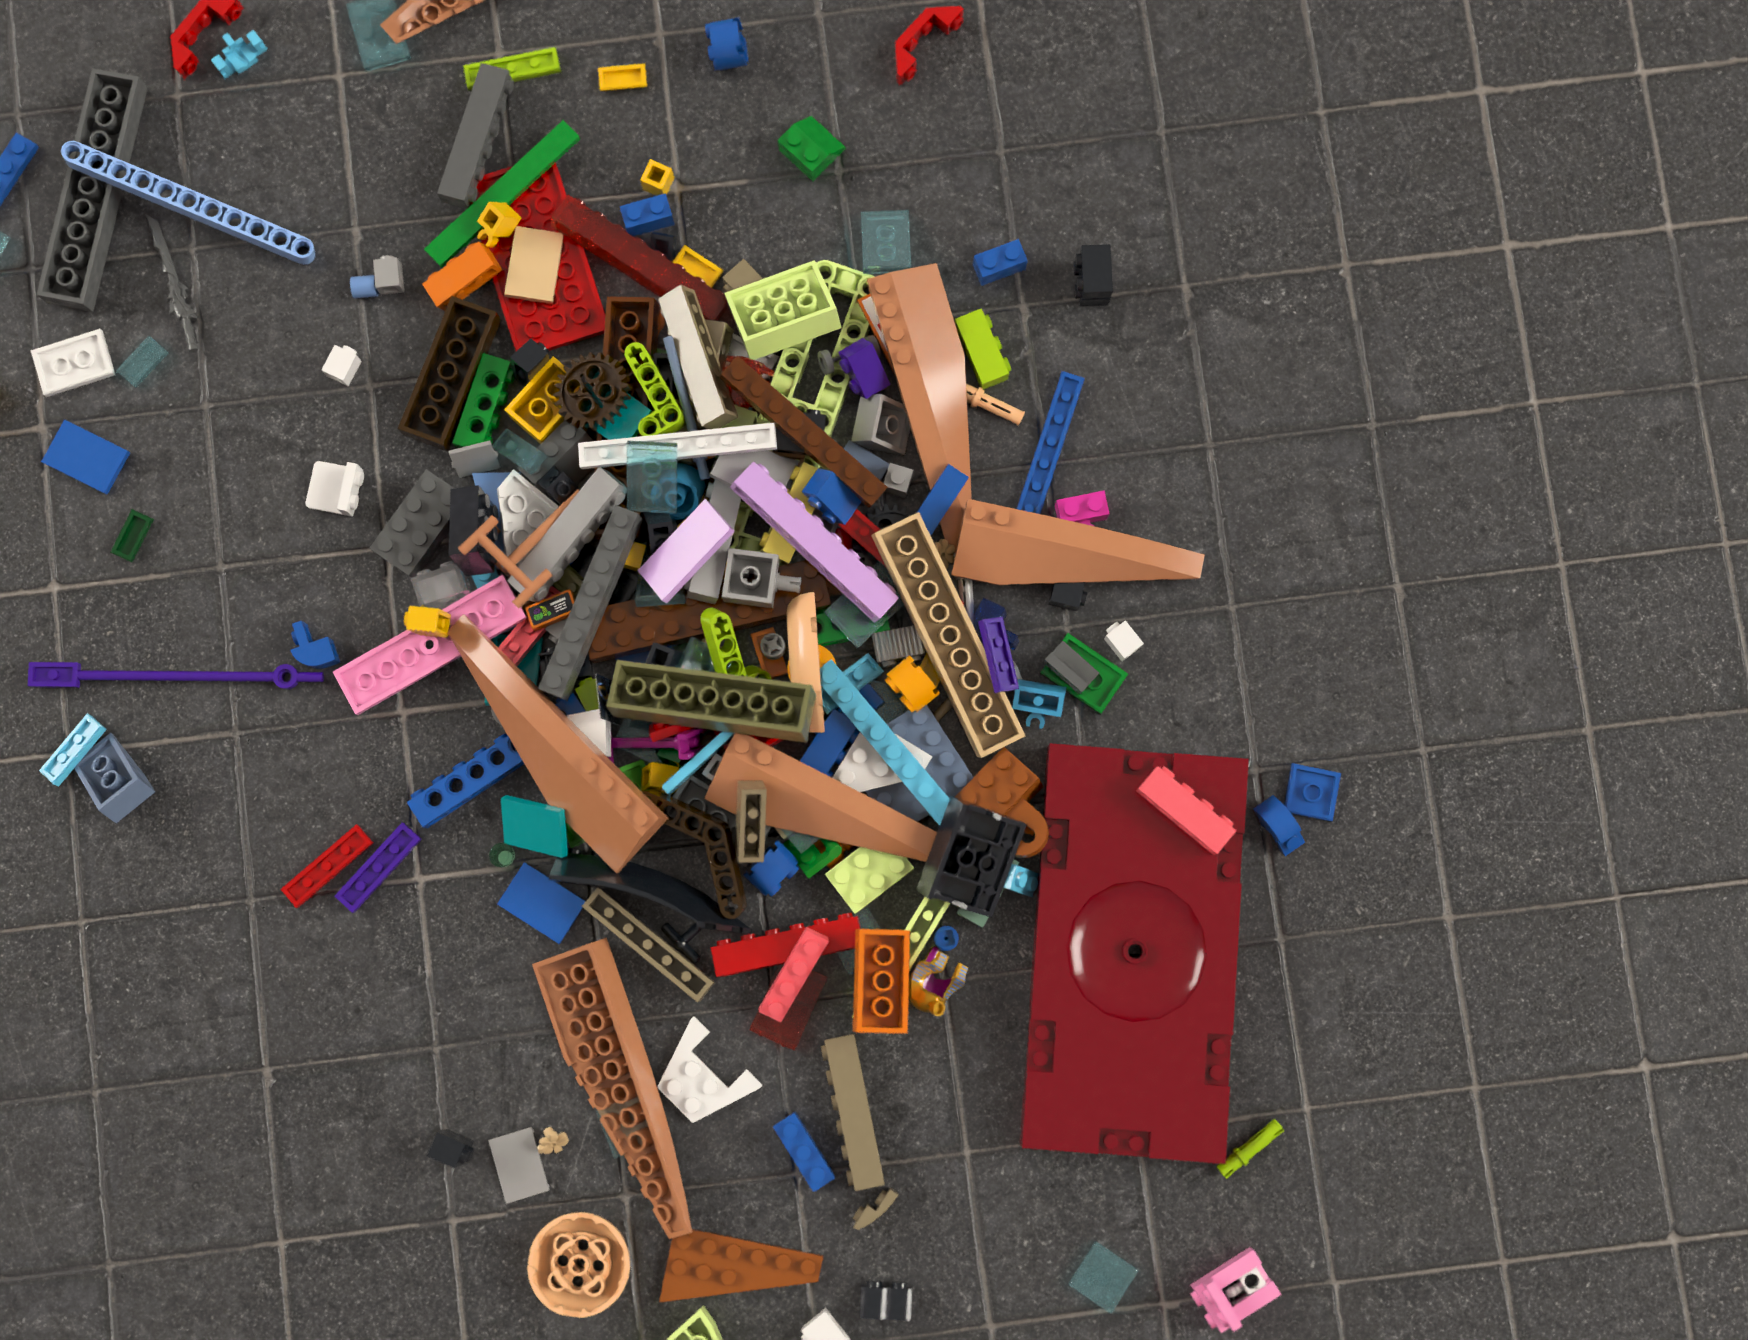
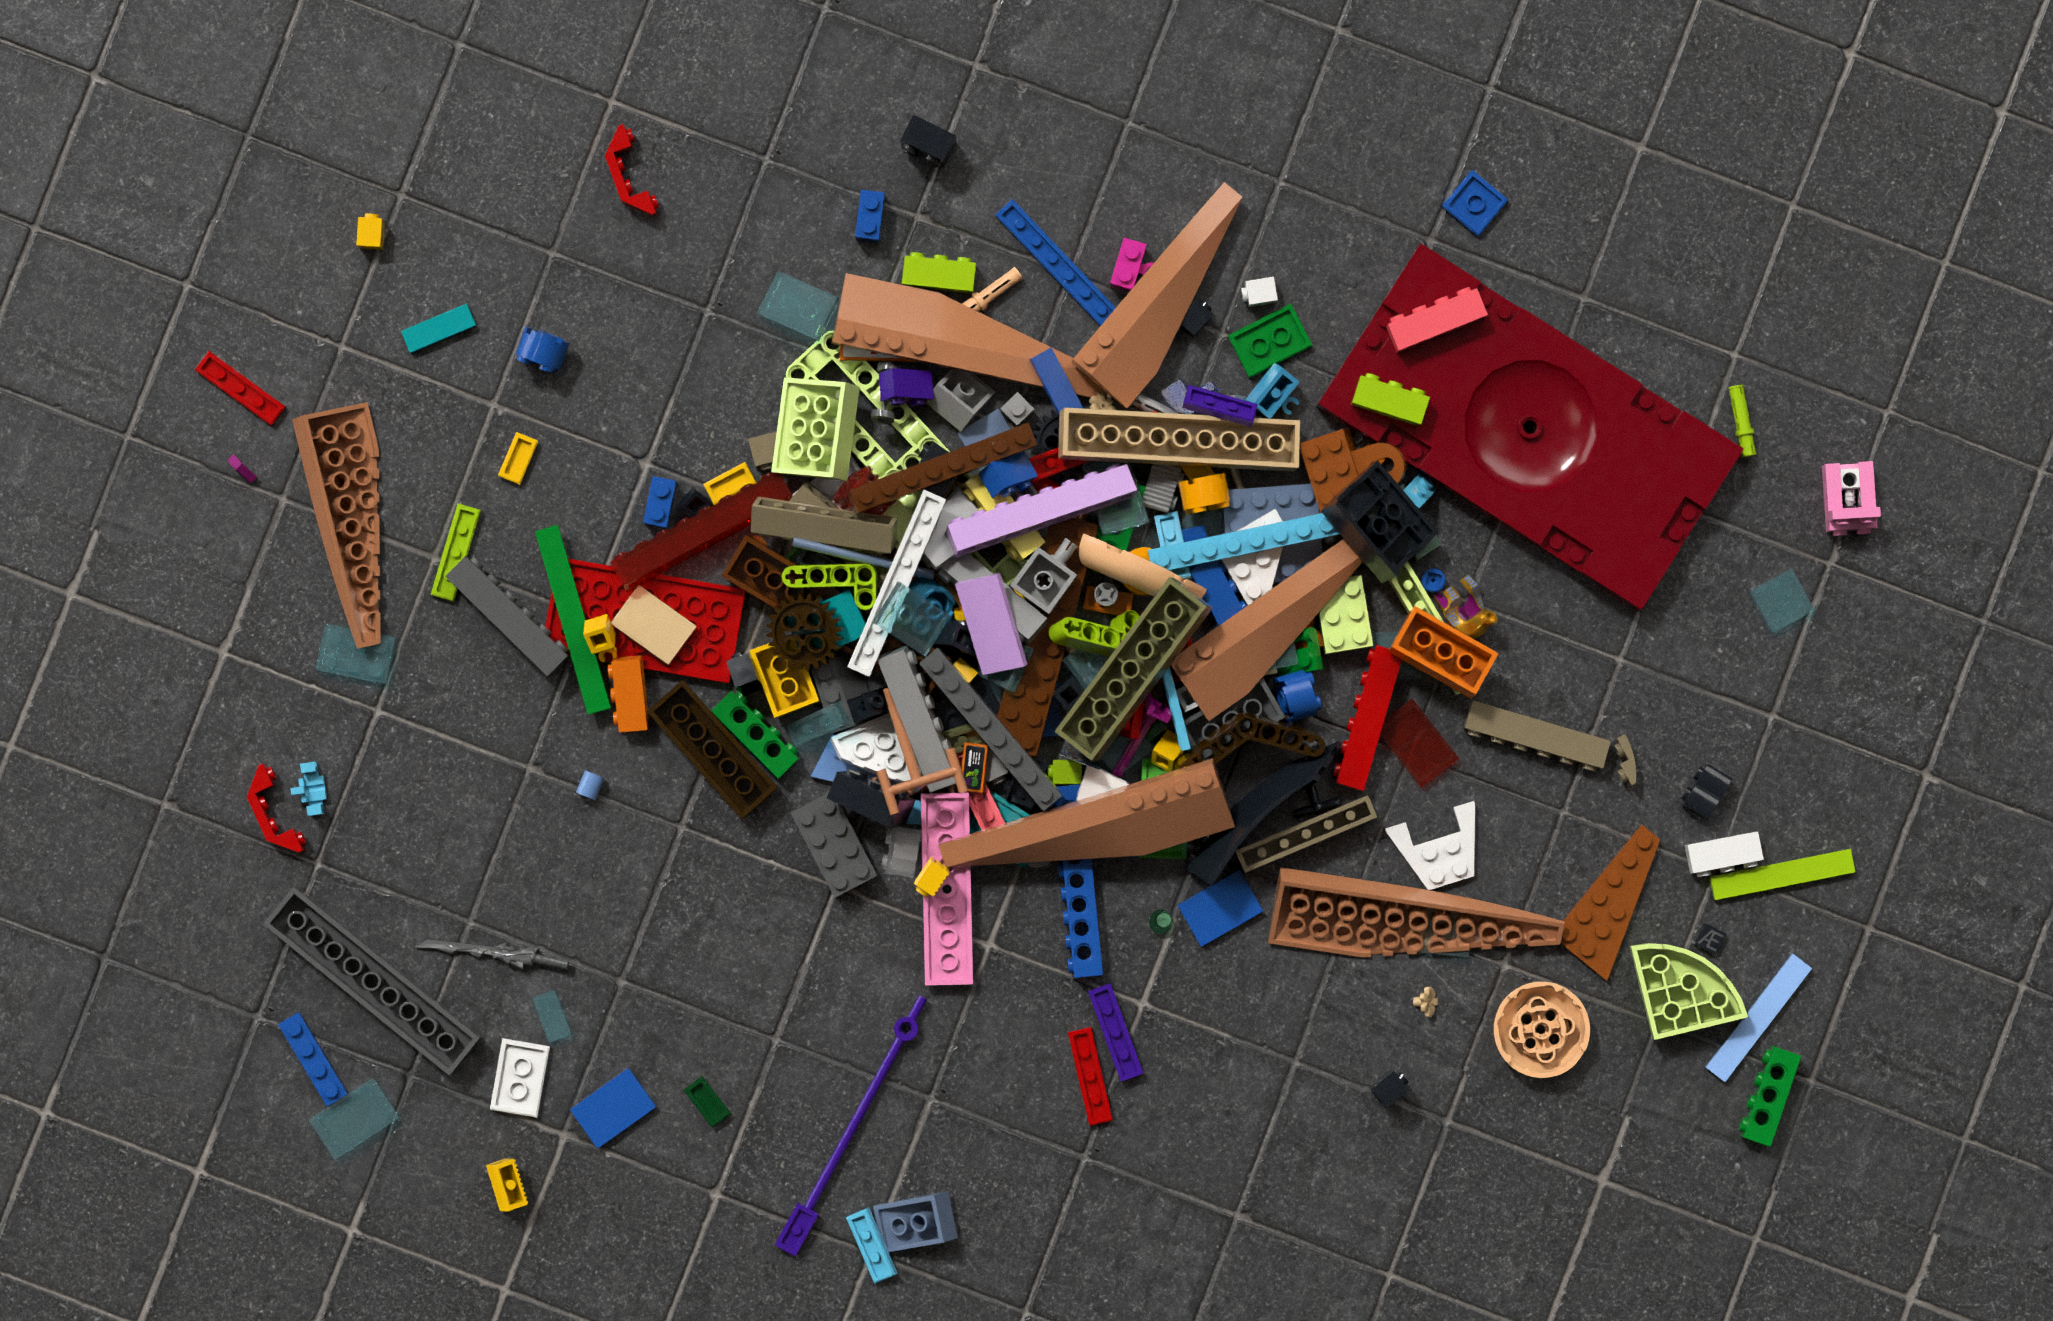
camera: 65 degrees left, 5 degrees up
(180, 194) = (441, 888): light blue beam -> none
(314, 654) = (900, 994): blue brick -> none
(335, 488) = (760, 902): white bracket -> none
(341, 364) = (651, 840): white brick -> none
(388, 275) = (591, 758): light grey brick -> none
(474, 459) = (801, 767): light grey piece -> none
(518, 1165) = (1431, 1041): light grey piece -> none
(534, 826) = (1154, 878): teal tile -> none
(657, 178) = (633, 476): yellow brick -> none
(750, 821) = (1252, 690): dark tan brick -> none
(793, 974) = (1396, 724): coral plate -> none
(804, 1151) = (1547, 794): blue brick -> none
(810, 147) = (673, 325): green slope -> none
(1071, 667) = (1260, 349): dark grey panel -> none
(1089, 806) = (1390, 399): none -> lime brick
(1280, 824) = (1488, 246): blue brick -> none

